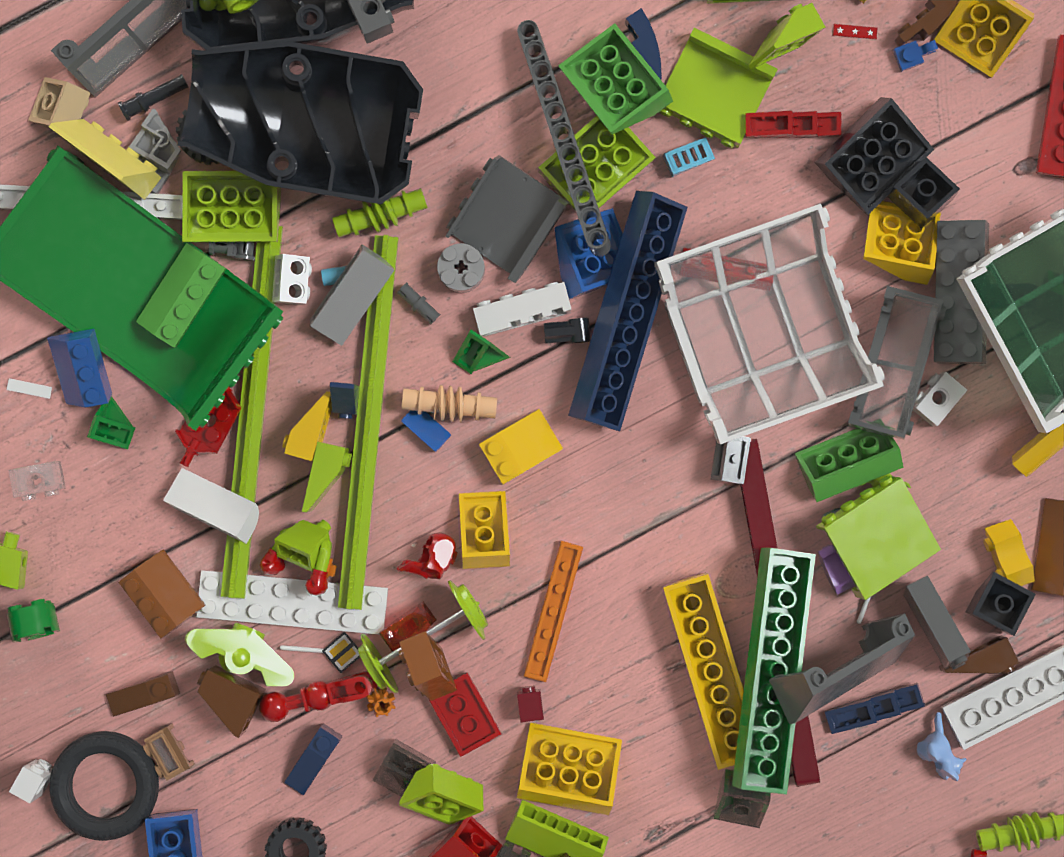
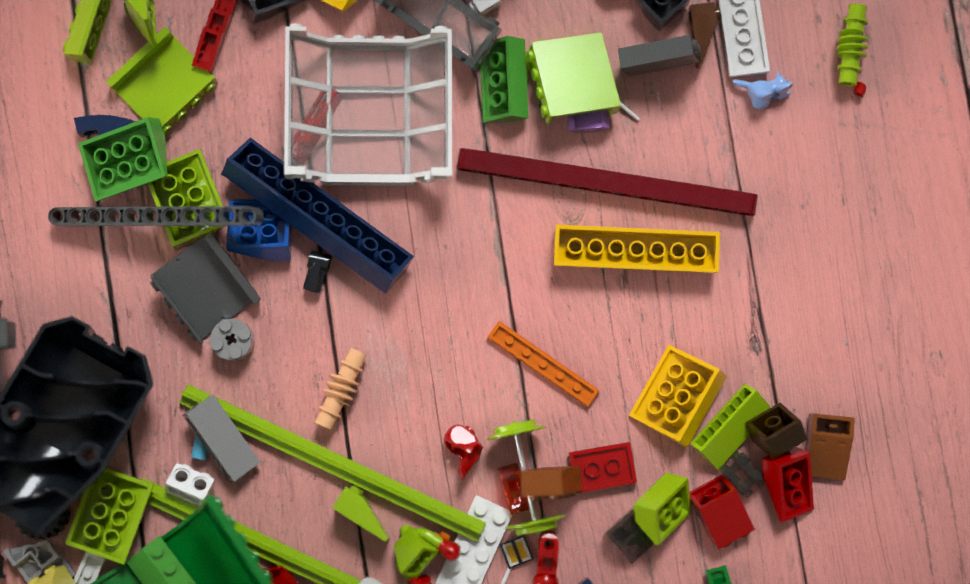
camera: 70 degrees left, 5 degrees down
(234, 250) = (147, 525): dark grey connector -> none
(309, 430) = (321, 513): yellow slope -> none
(344, 399) = (305, 474): dark blue slope -> none
(380, 213) = (161, 391): lime piece -> none
(380, 708) = (563, 531): orange gear -> none
(418, 303) = (249, 386): dark grey pin -> none
(426, 429) = (355, 416): blue slope -> none
(477, 353) = (308, 351): green slope -> none
(484, 530) = (456, 397): yellow slope -> none
(521, 446) = (397, 343): yellow slope -> none
(522, 309) = (285, 301): white wedge -> none
(530, 704) = (613, 409): dark red brick -> none
(670, 162) = (210, 139): medium azure slope -> none
(731, 460) = (469, 174): tile -> none
(740, 805) = (750, 262): clear smoke slope -> none
(774, 649) = (652, 198): green brick -> none
(812, 689) = (676, 169): dark grey windscreen -> none
(874, 708) = (712, 130): dark blue slope -> none

